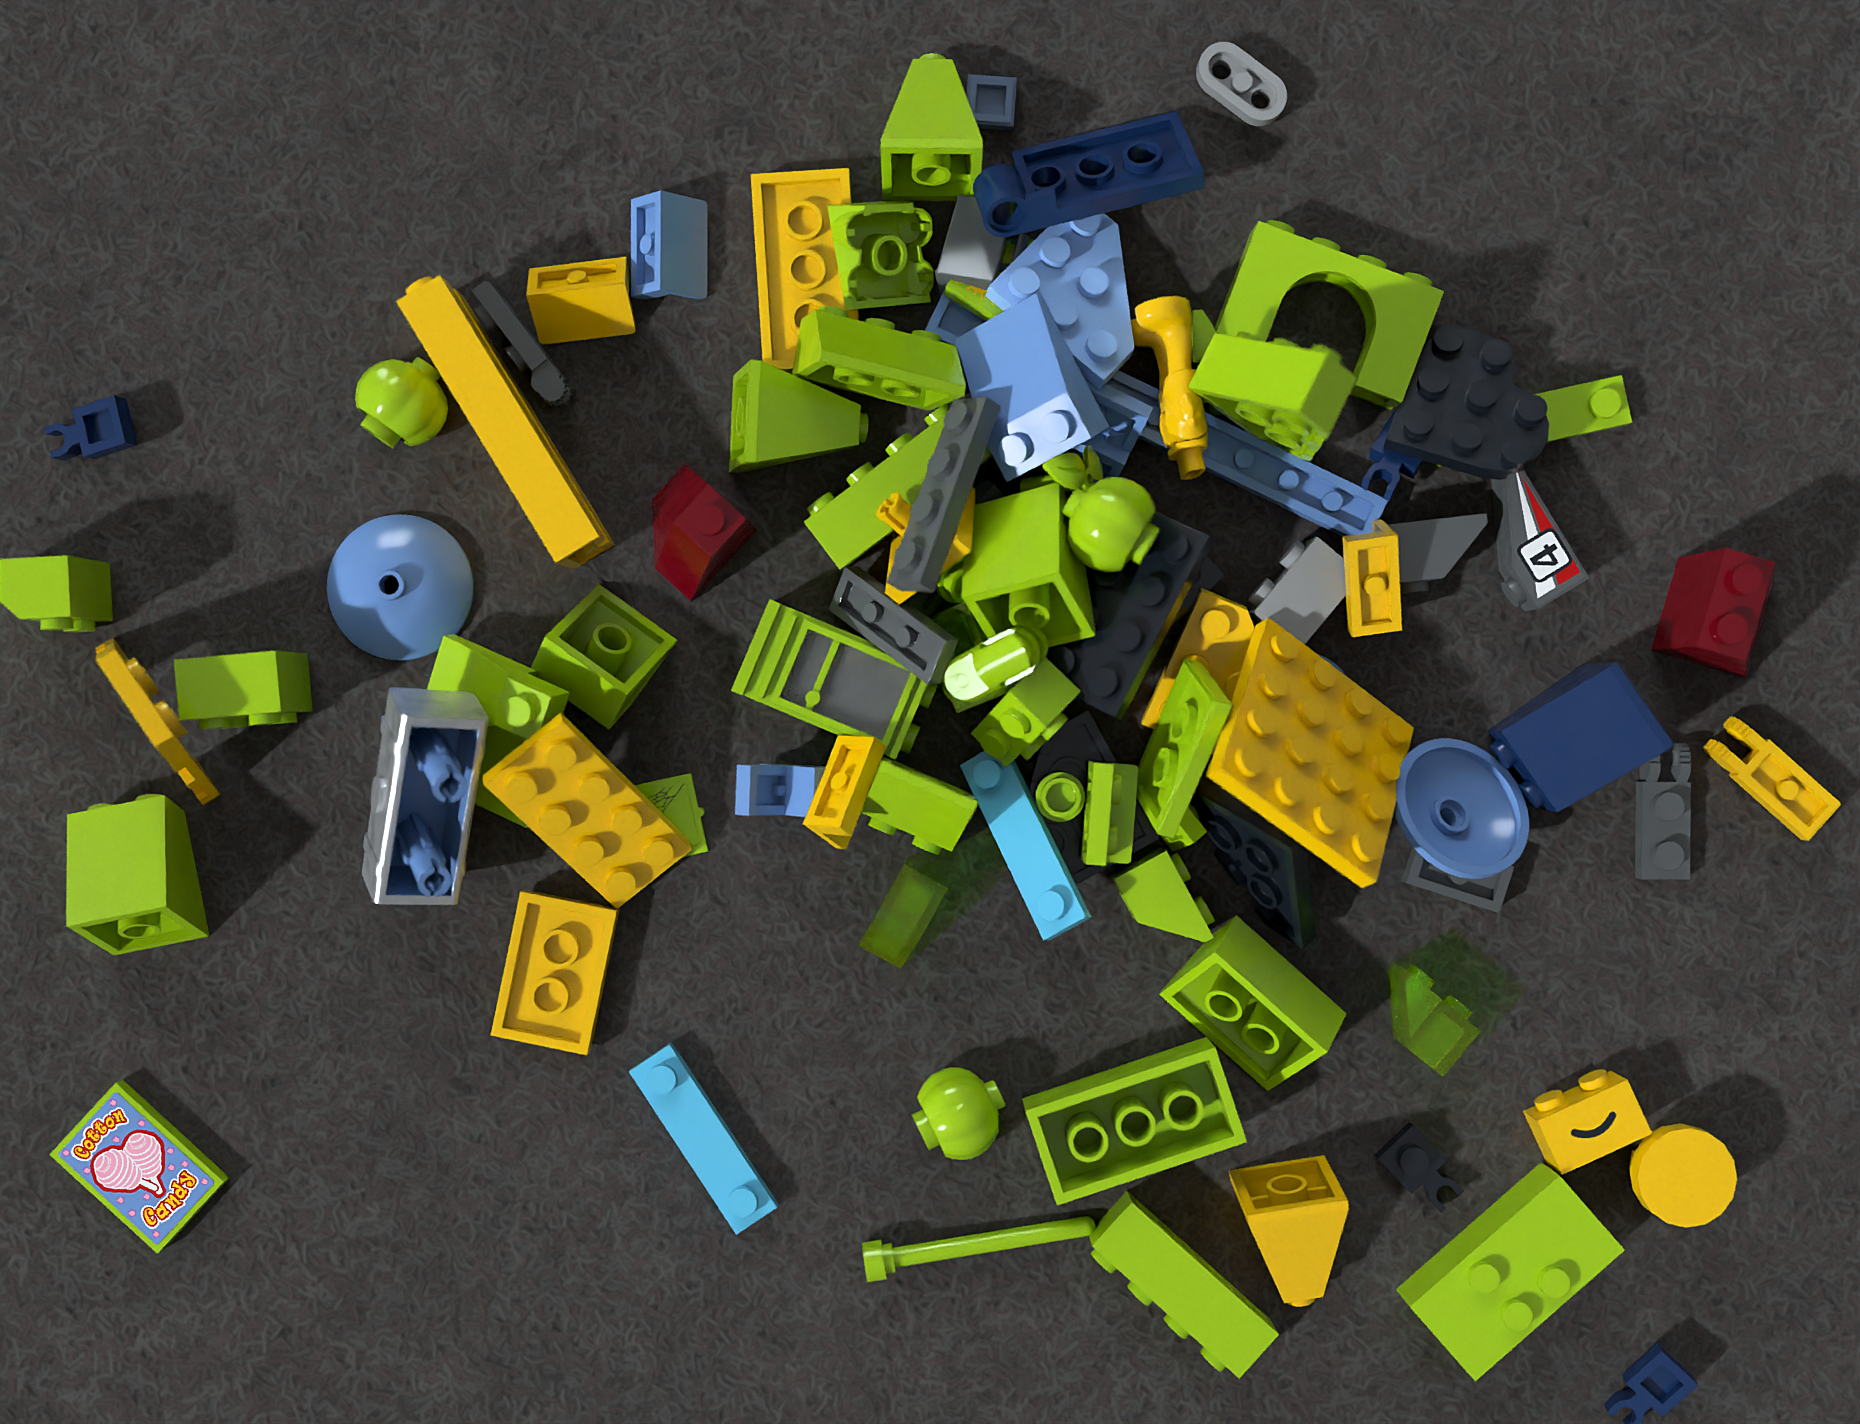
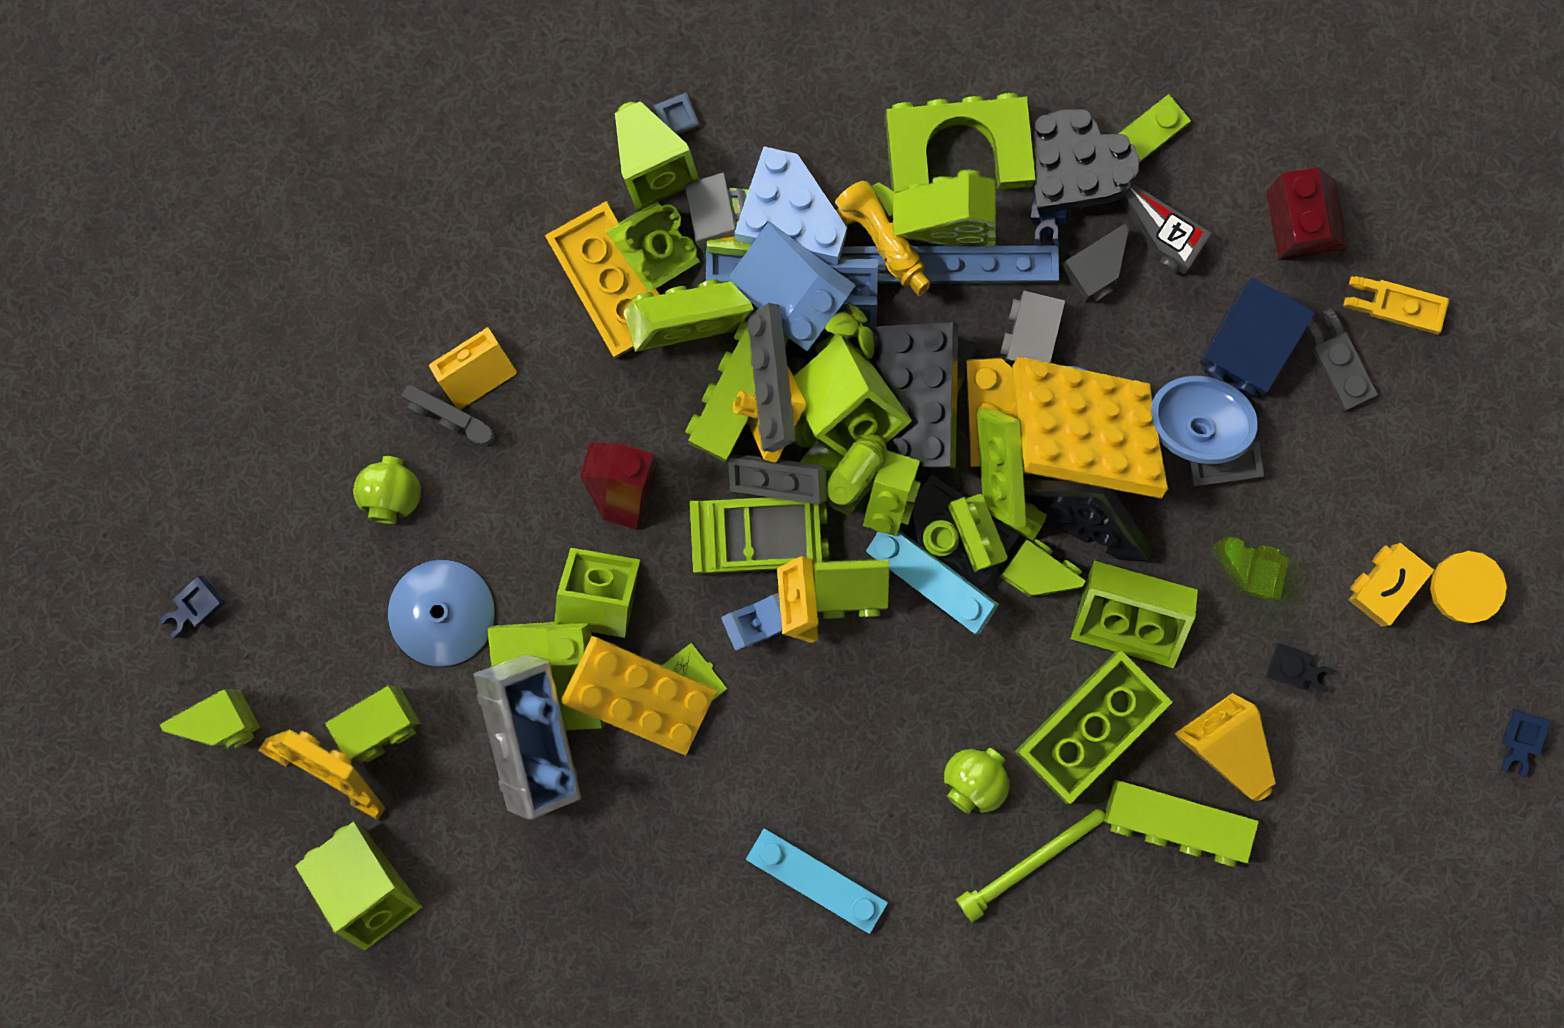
camera: 20 degrees left, 5 degrees down
(504, 422) = (464, 469): yellow brick -> none
(555, 972) = (665, 816): yellow plate -> none
(668, 246) = (512, 307): medium blue panel -> none
(787, 419) = (643, 380): lime slope -> none
(903, 914) = (876, 667): clear neon green slope -> none
(1016, 204) = (726, 173): dark blue hinge -> none
(1111, 524) = (886, 344): lime plant -> none
(1245, 80) = (833, 24): light grey plate -> none
(1372, 581) = (1073, 302): yellow panel -> none
(1510, 1270) = (1389, 706): lime brick -> none

